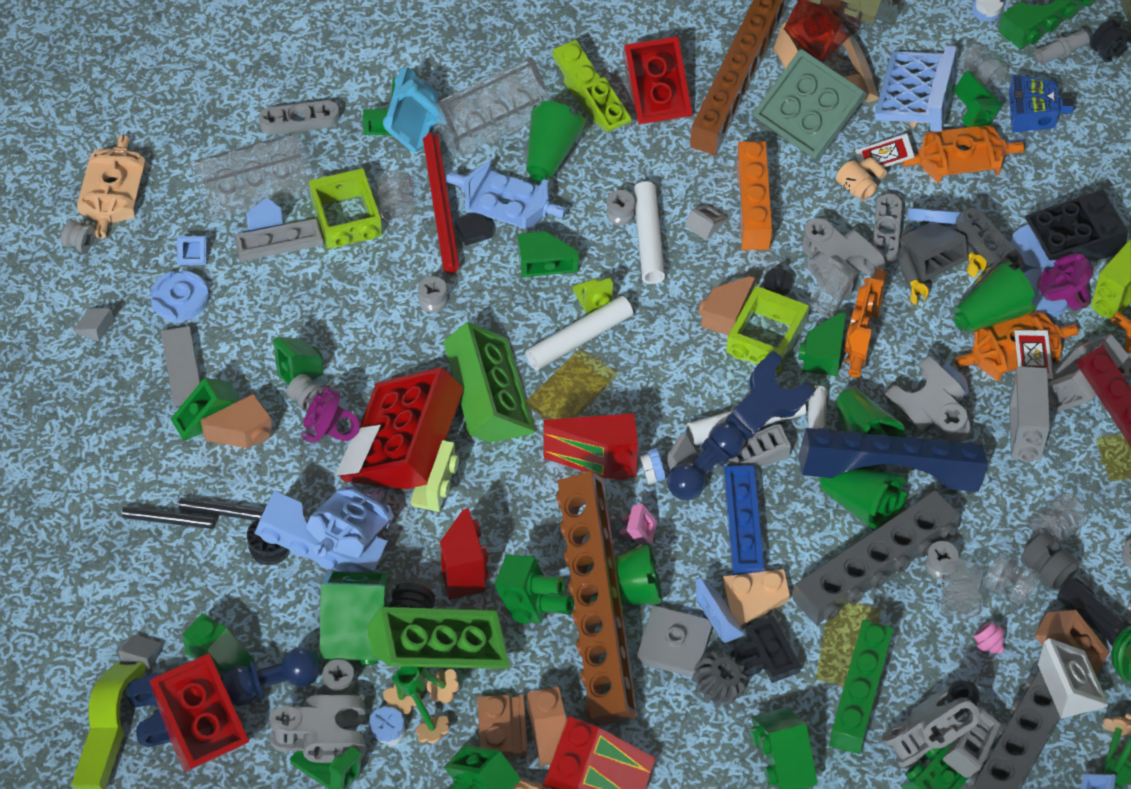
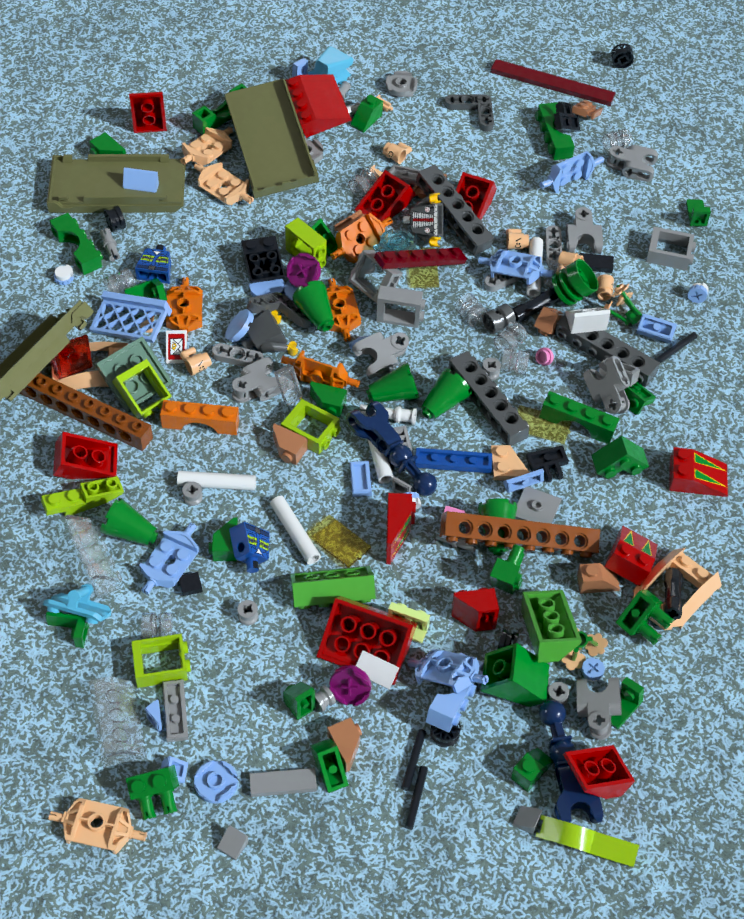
camera: 85 degrees left, 0 degrees up
(78, 236) = (148, 850): light grey wheel -> none
(157, 223) = (157, 781): none -> green brick
(309, 123) = (53, 681): light grey beam -> none
(441, 203) = (165, 600): red axle -> none
(502, 724) = (593, 606): nougat plate -> none
(533, 276) = (250, 545): none -> blue torso
(596, 293) = (267, 516): lime bracket -> none
(688, 405) = (360, 479): none -> light blue tile
(705, 221) = (211, 450): light grey slope -> none
(719, 678) = (570, 485): dark grey gear -> none
(762, 102) = (155, 381): none -> lime window
(778, 280) = (269, 417): black tile -> none
(834, 452) = (424, 393): dark blue arch -> none
(966, 690) = (597, 365): black plate -> none
(1033, 349) = (354, 298): sticker -> none

